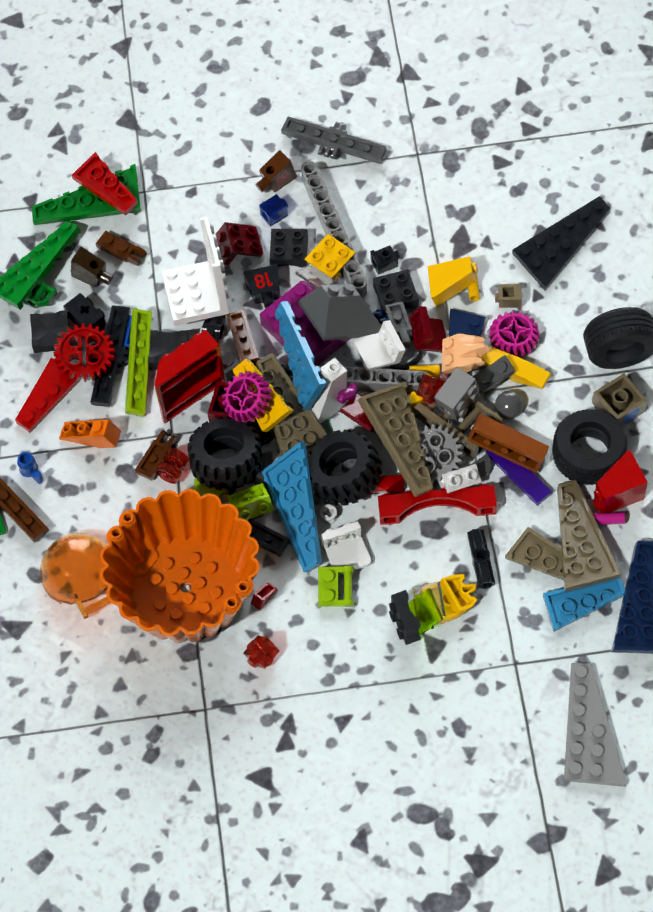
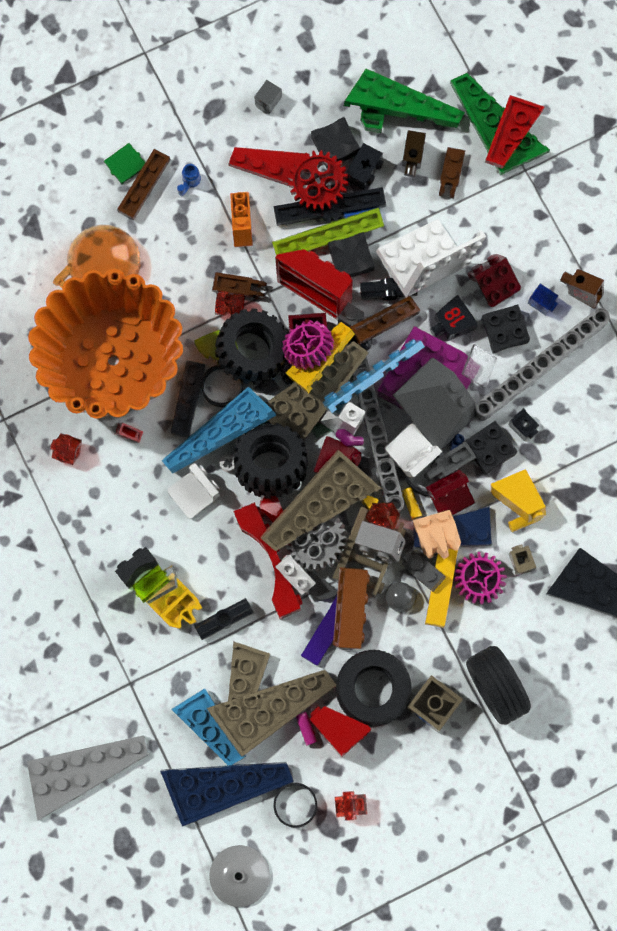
camera: 70 degrees right, 15 degrees up
(251, 502) = (210, 387): lime bracket -> none
(329, 586) = (151, 488): lime plate -> none
(330, 256) = (503, 371): yellow hinge -> none

